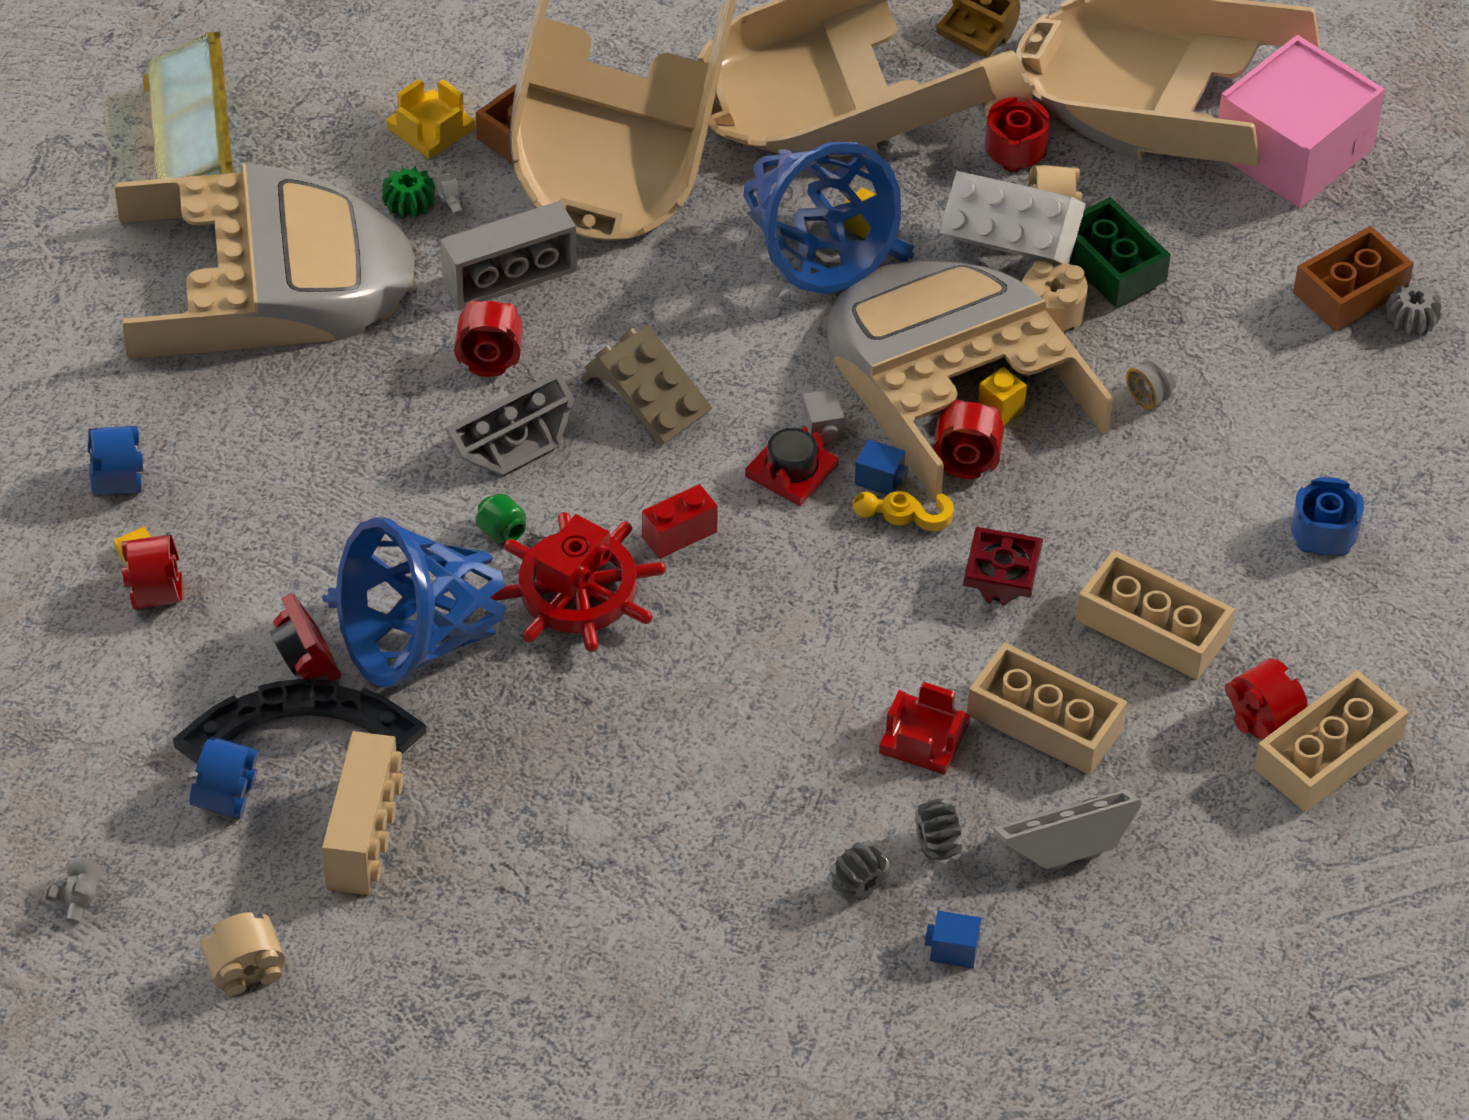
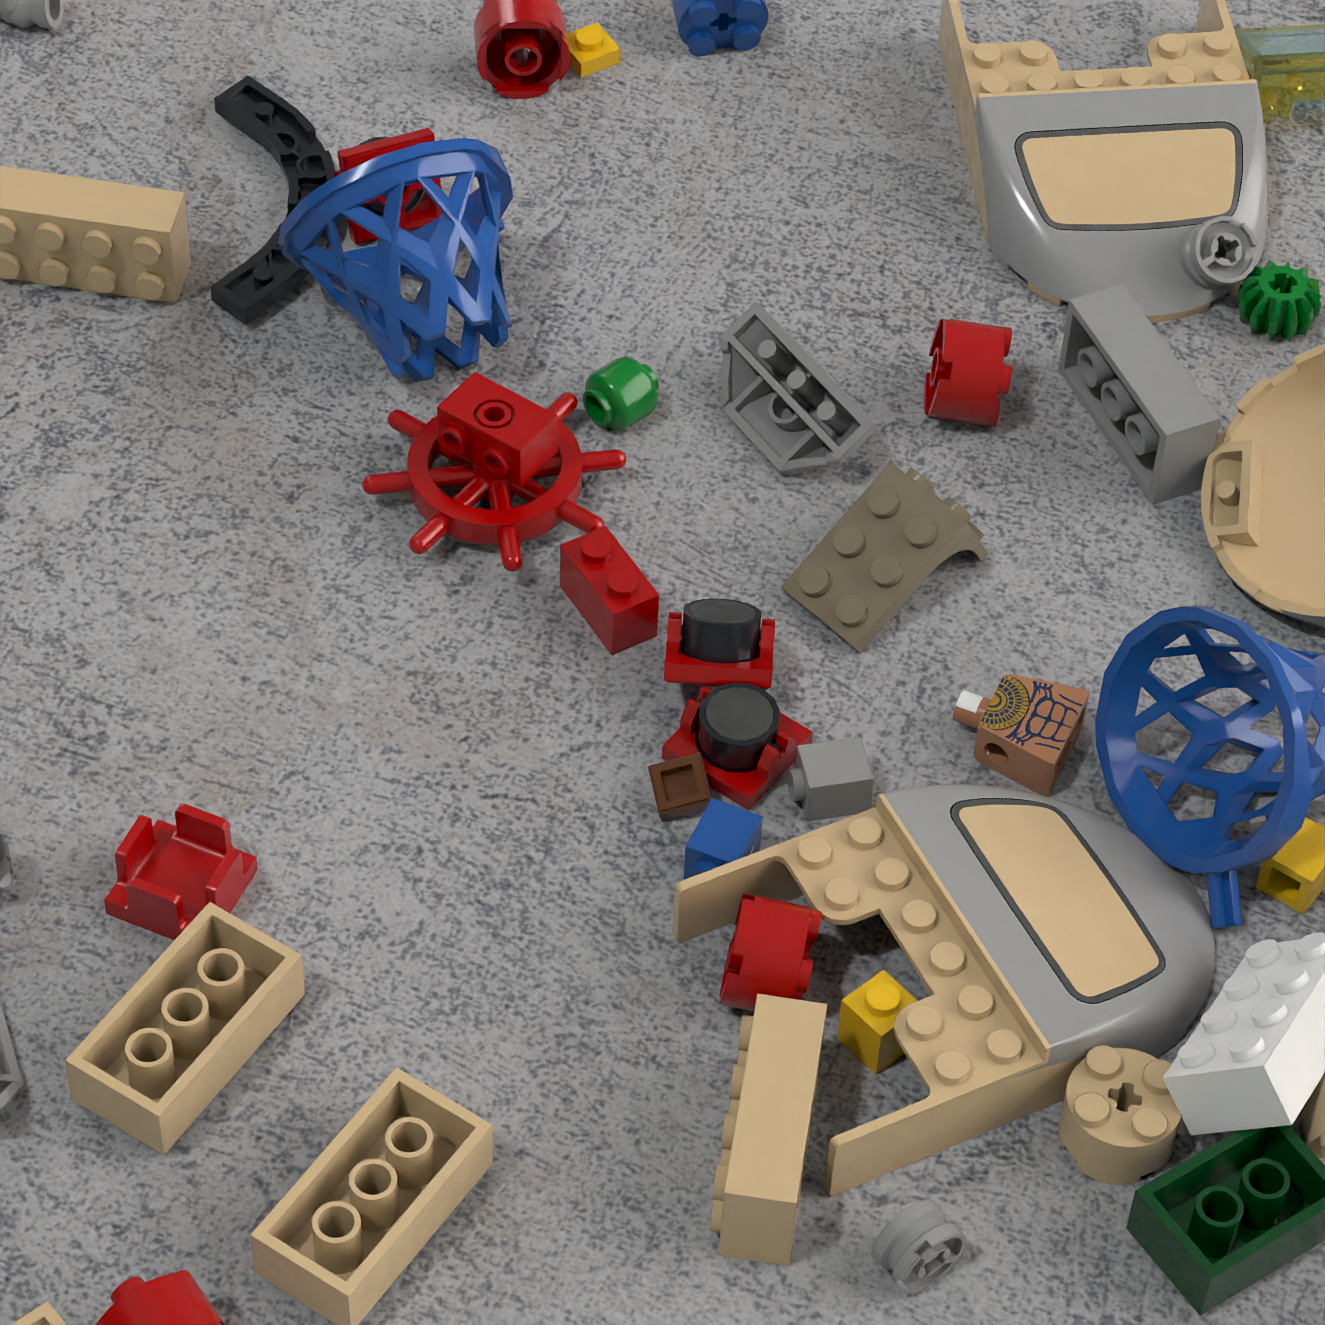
camera: 90 degrees right, 0 degrees up
(223, 776) = (166, 110): blue brick -> none
(381, 208) = (1202, 242): none -> light grey wheel
(449, 192) = (1285, 347): white piece -> none
(731, 462) = (719, 644): none -> piece
(778, 327) = (1025, 728): none -> nougat torso
(832, 489) = (680, 786): none -> reddish brown tile
(902, 508) = (637, 877): yellow piece -> none
(1002, 564) = (491, 990): dark red piece -> none
(1090, 435) = (768, 1129): none -> tan brick

